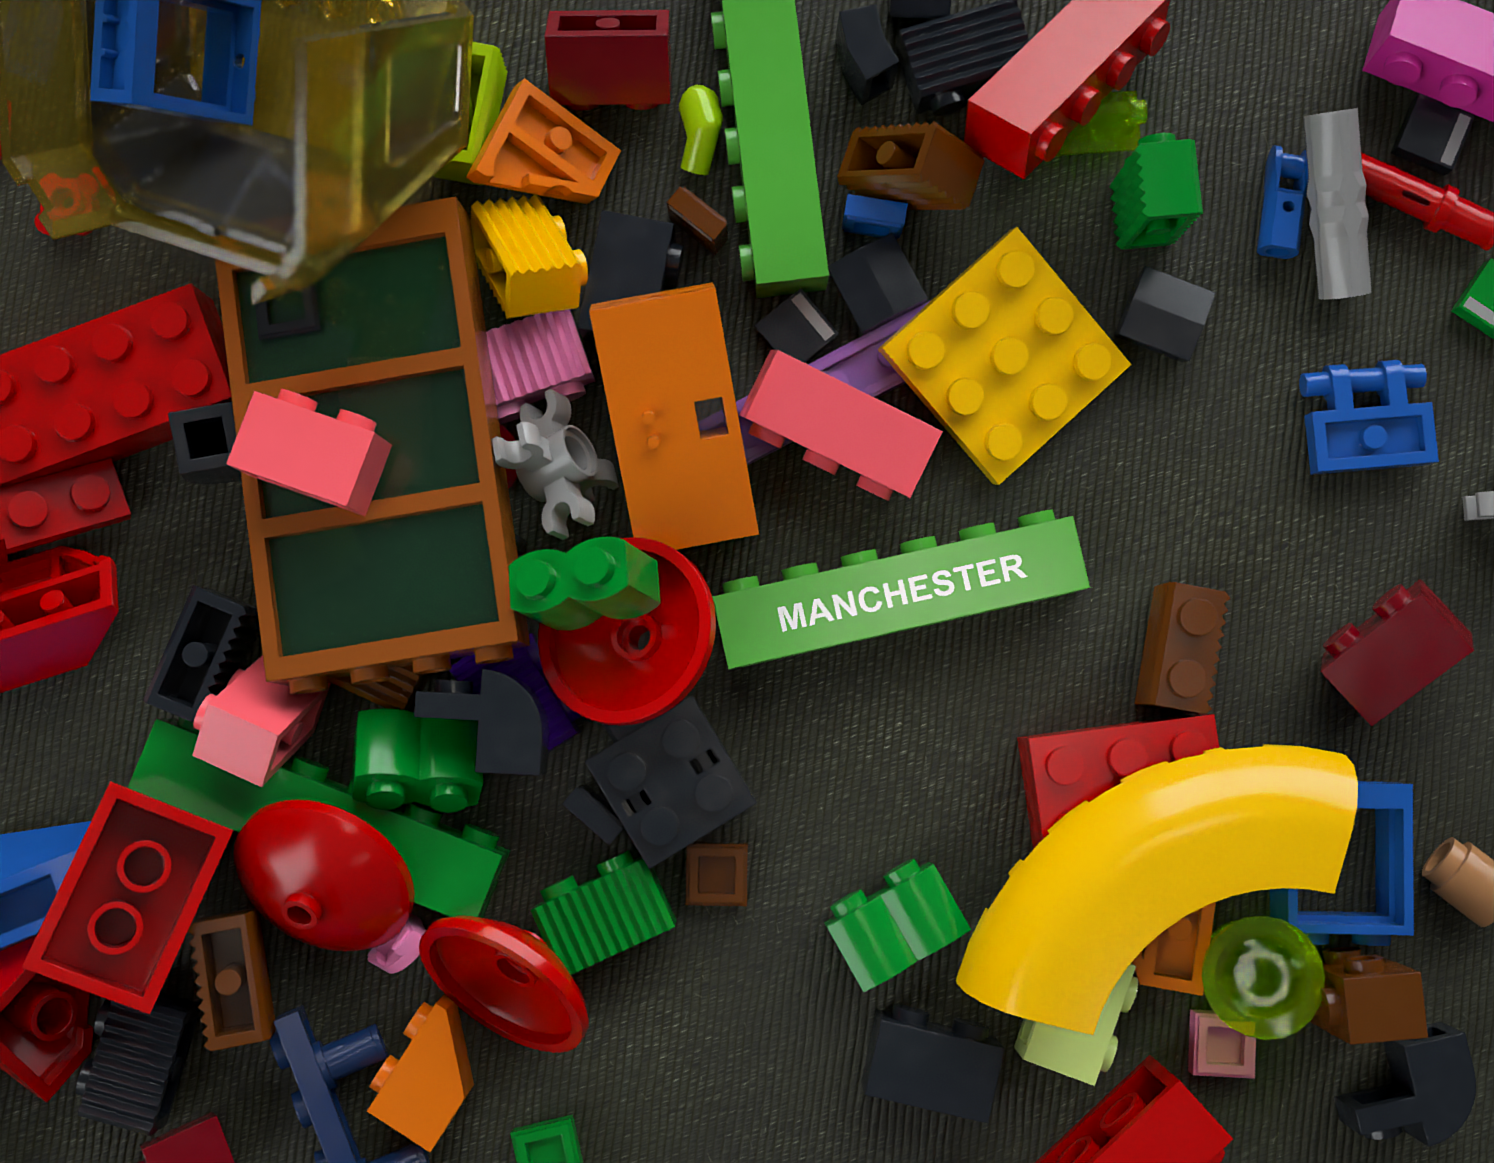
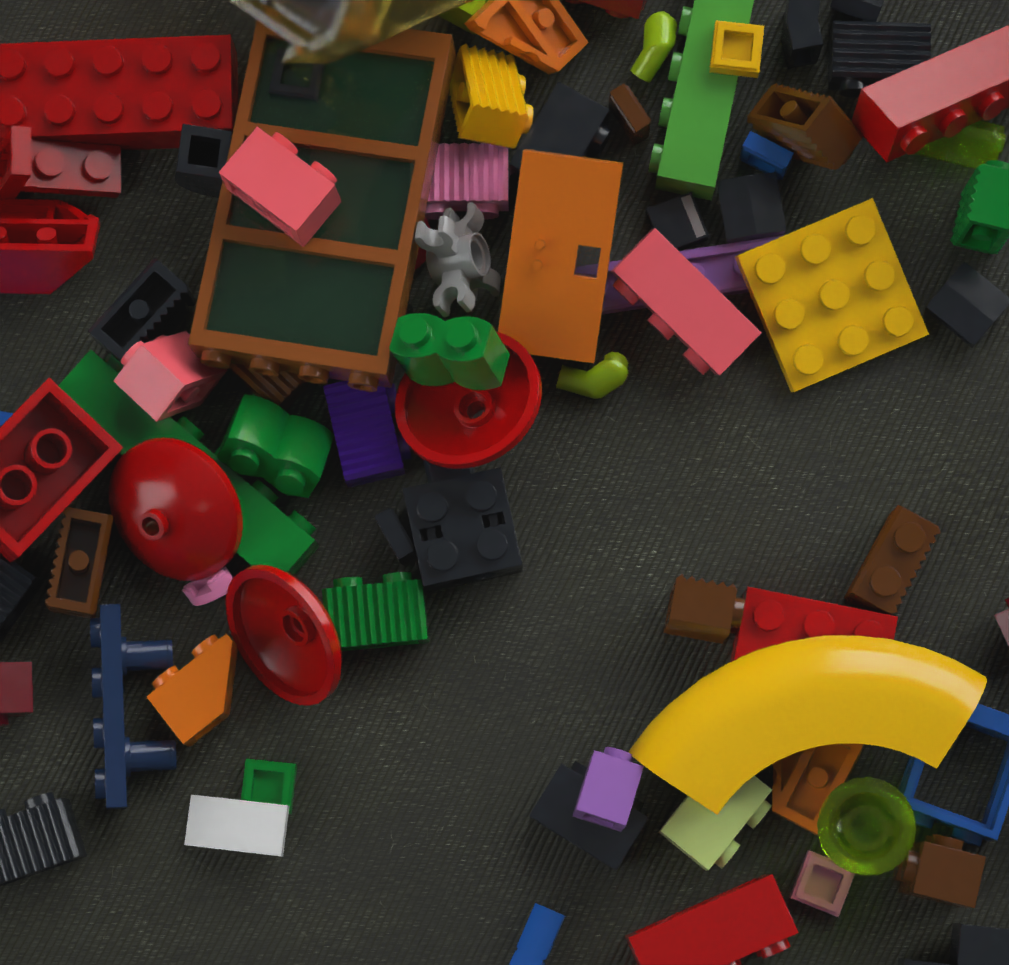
camera: 25 degrees right, 5 degrees down
(510, 723) = (357, 435): black brick -> none
(716, 874) = (472, 617): reddish brown tile -> none
(766, 549) = (598, 380): none -> lime arm
(799, 101) = (736, 49): none -> yellow tile
(896, 924) = (597, 699): green brick -> none
(900, 591) = (688, 447): bright green brick -> none
(950, 1039) = (608, 789): none -> medium lavender brick
(985, 783) = (703, 610): none -> reddish brown brick

